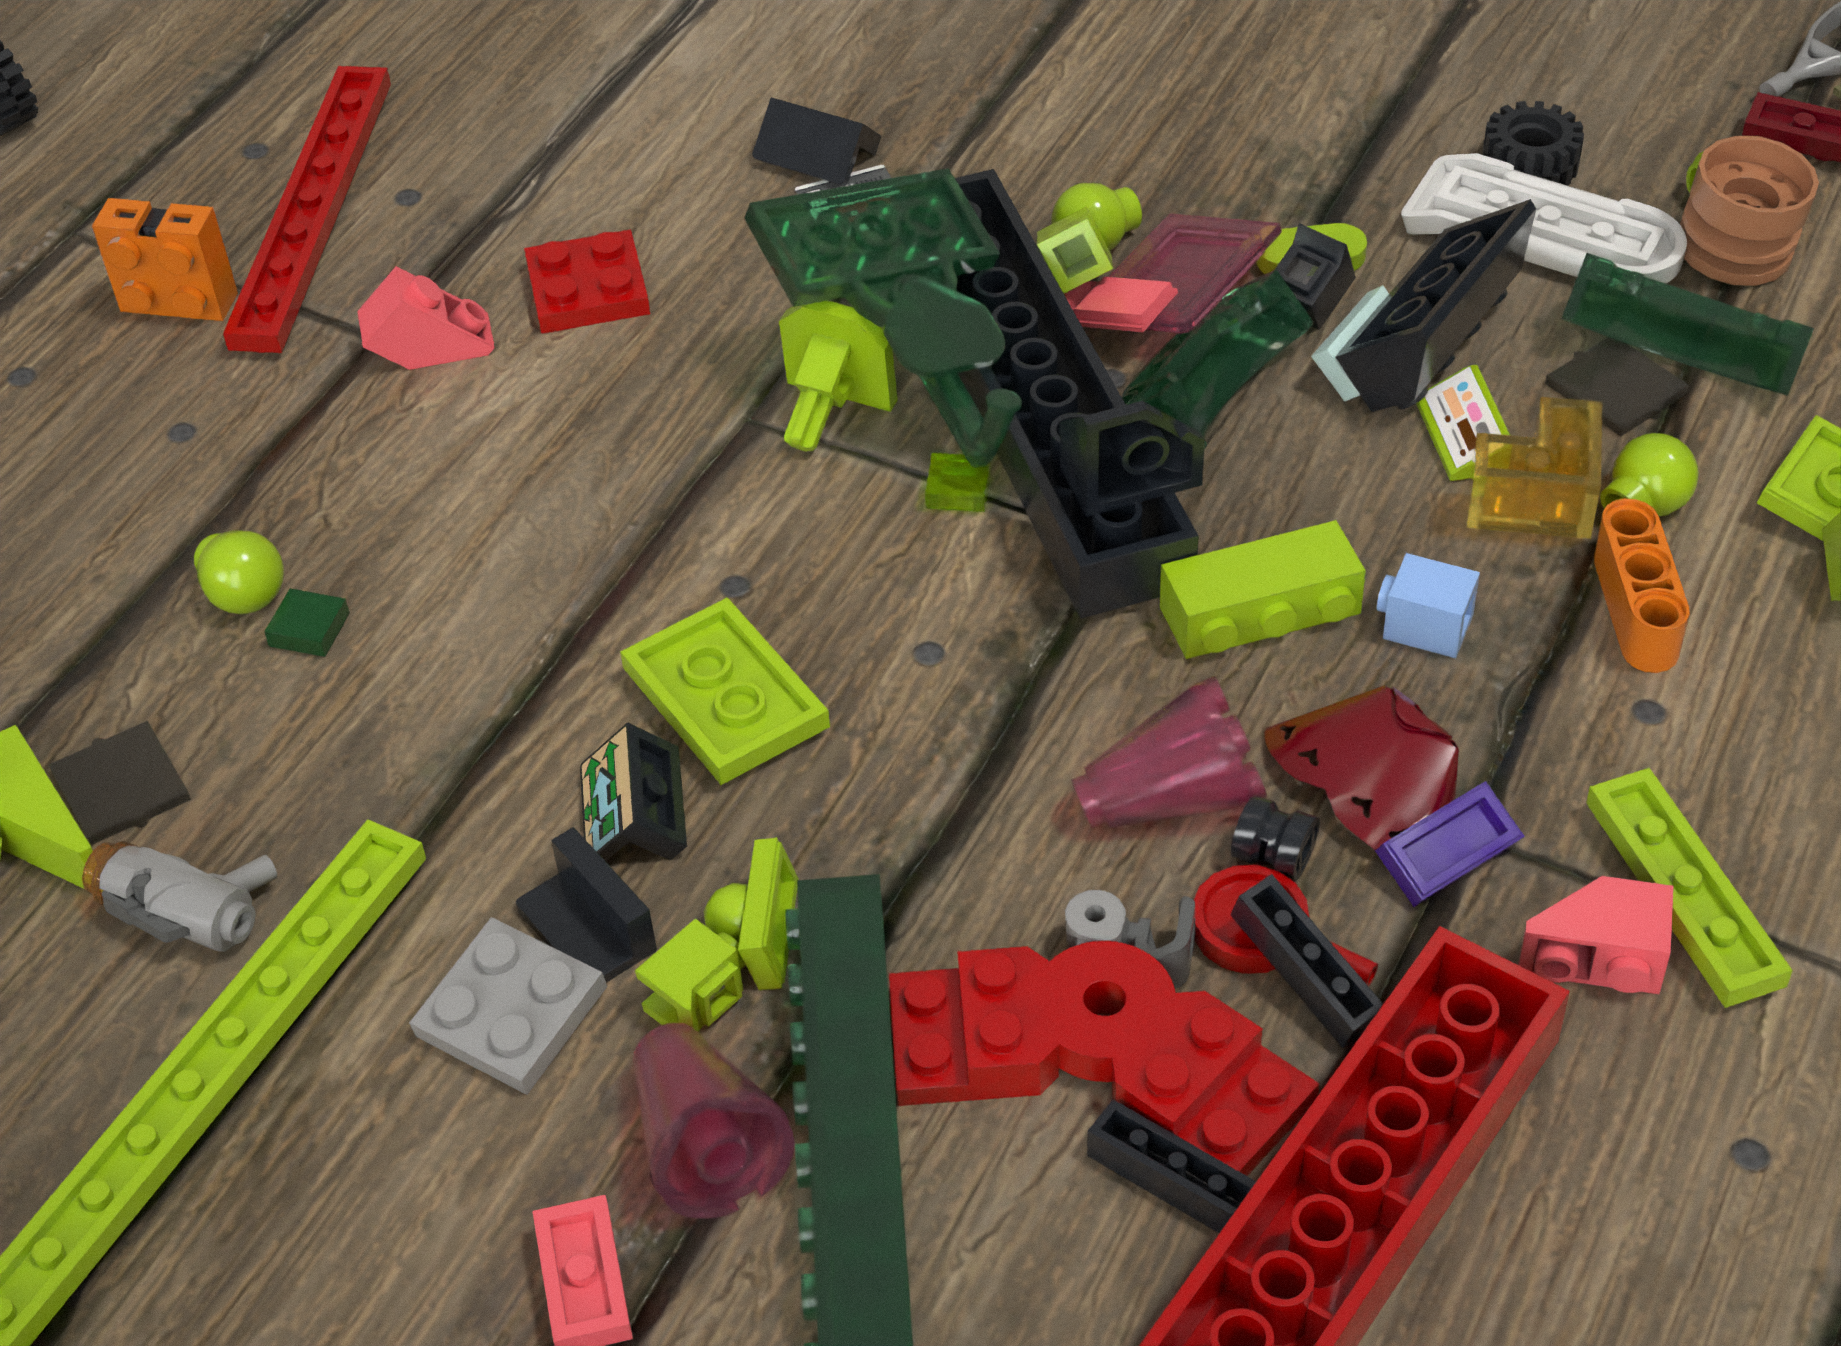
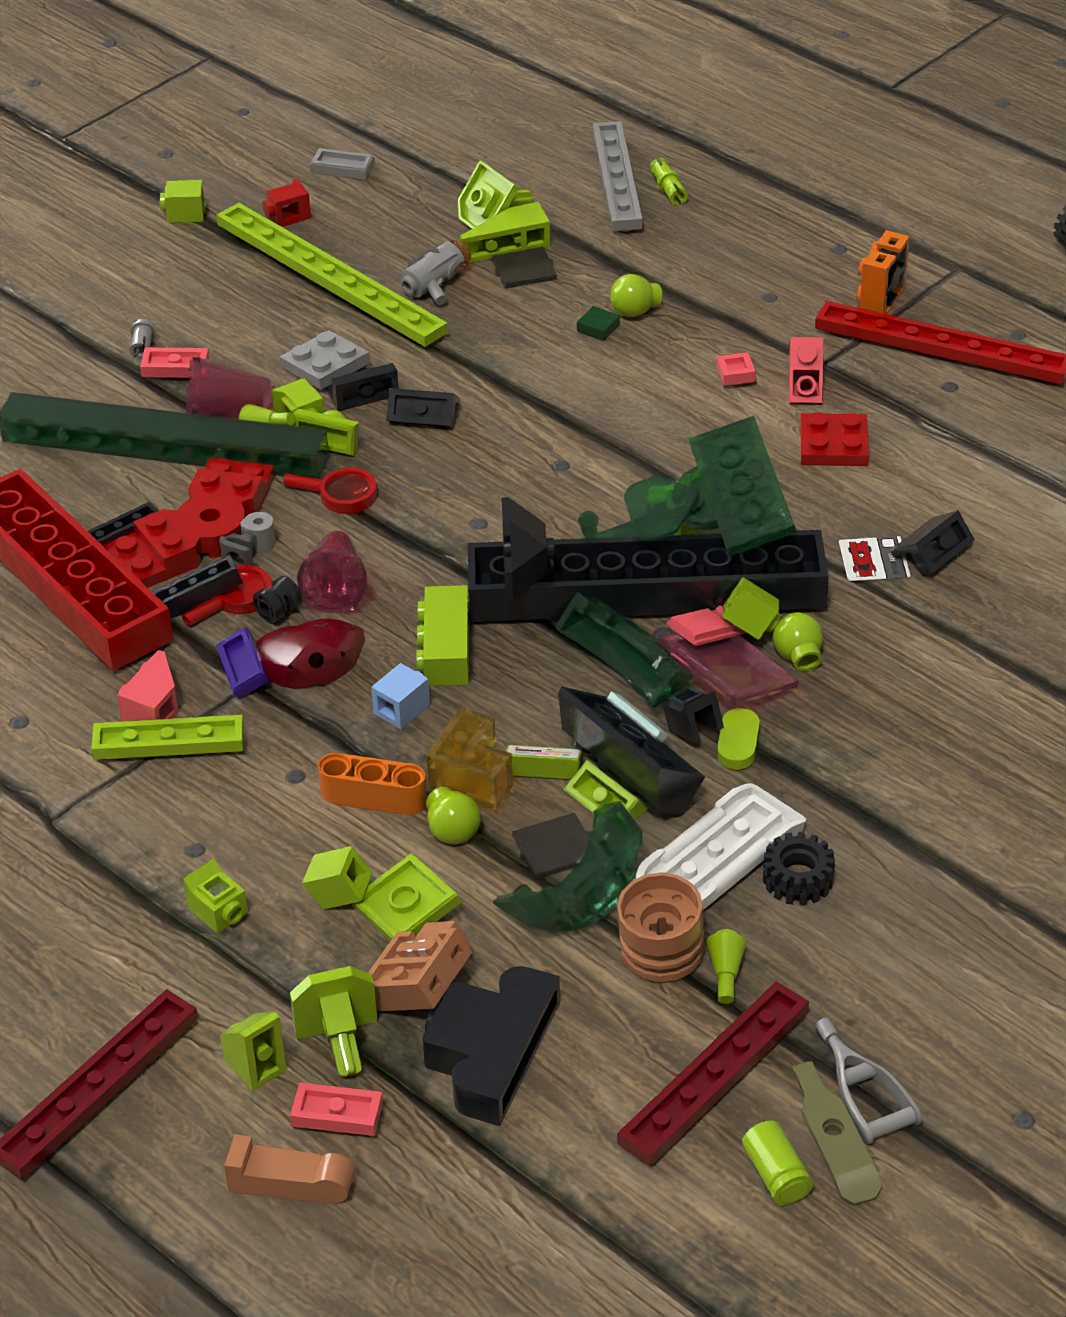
camera: 105 degrees right, 5 degrees down
(430, 411) = (735, 369): none -> coral plate
(725, 690) = (477, 441): lime plate -> none
(762, 1032) = (259, 414): none -> lime cone
(918, 853) = (341, 490): none -> red piece
(1503, 347) = (595, 788): none -> lime slope

